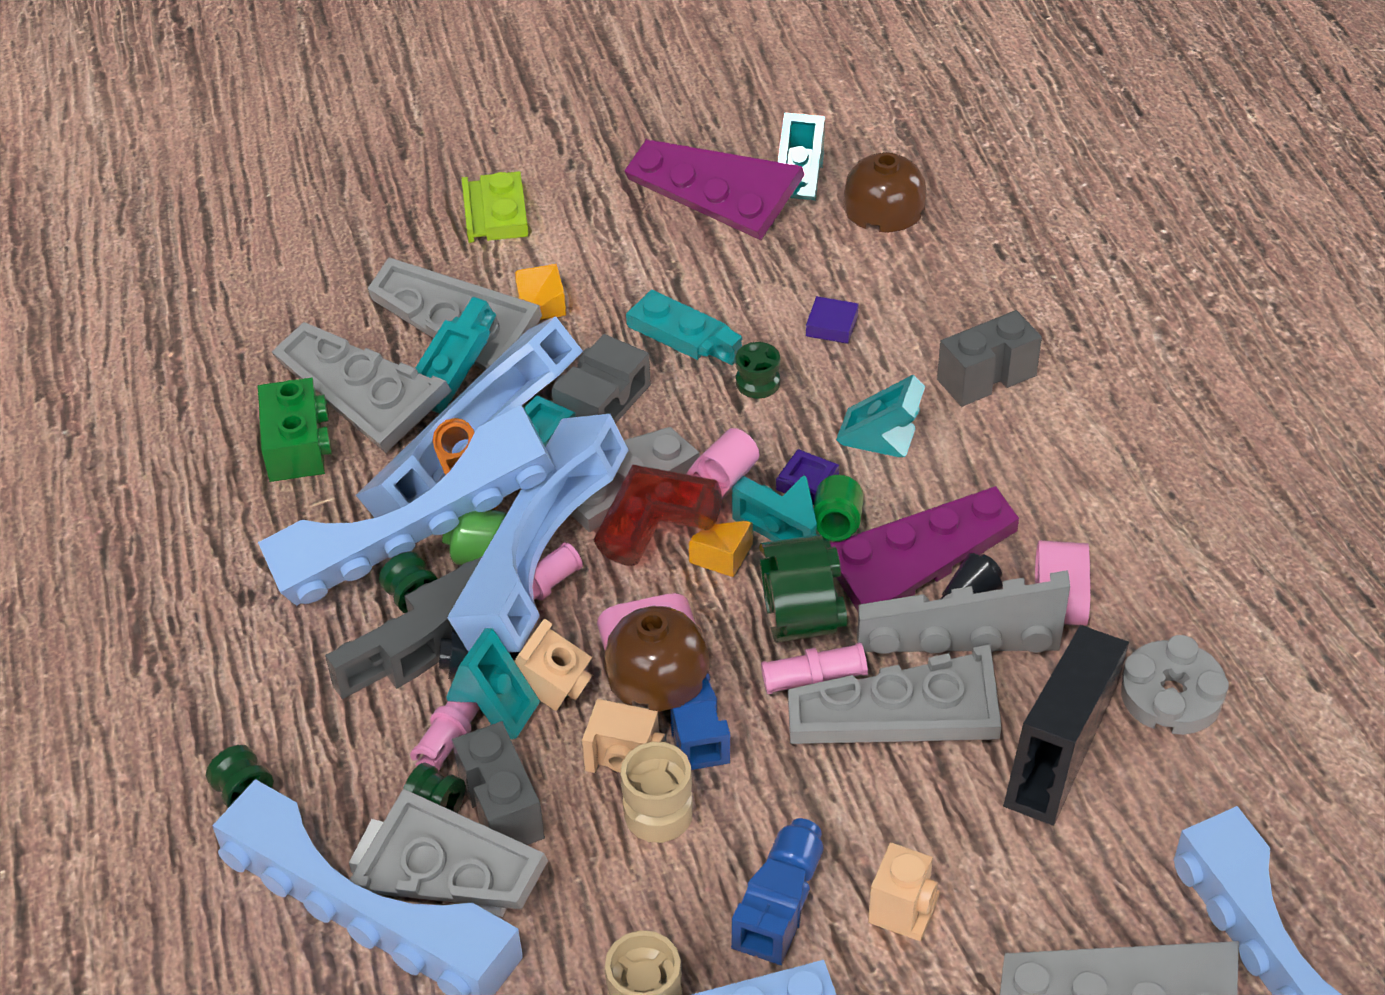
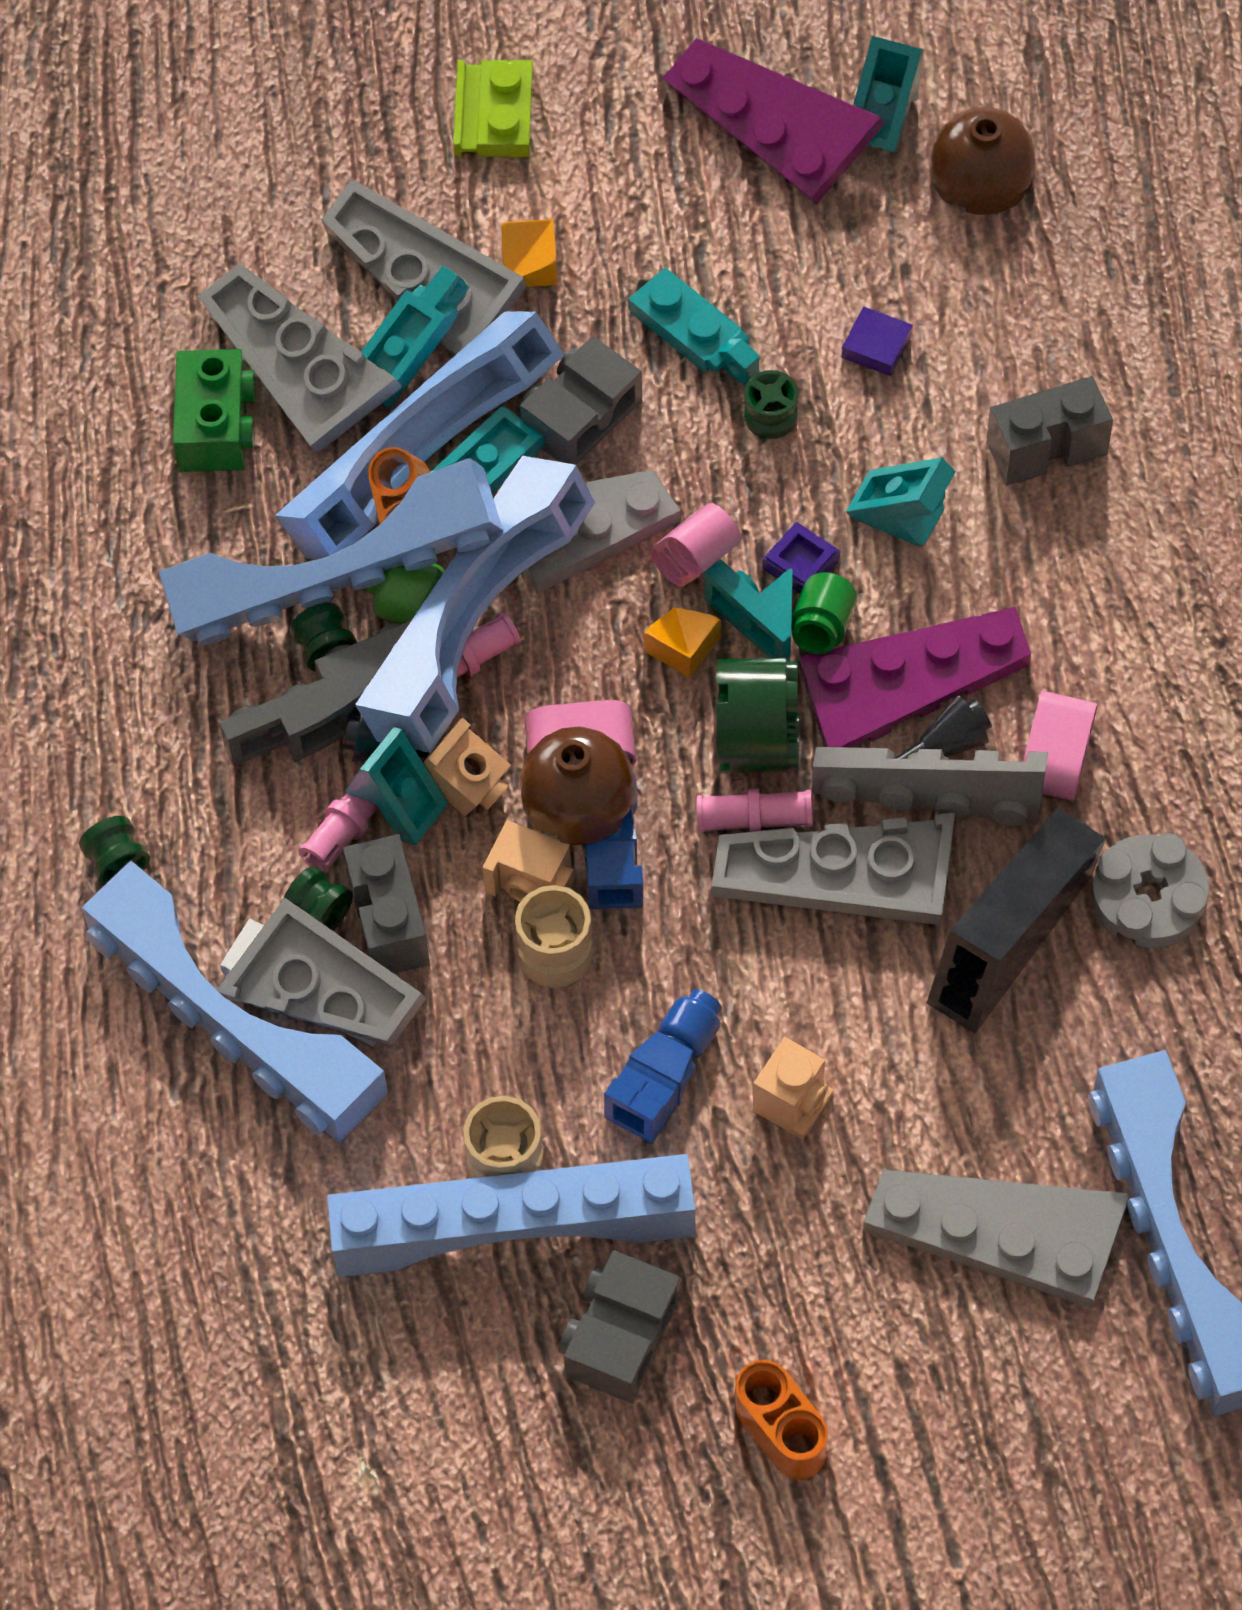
camera: 10 degrees right, 15 degrees up
(653, 497) = (609, 570): clear red brick -> none

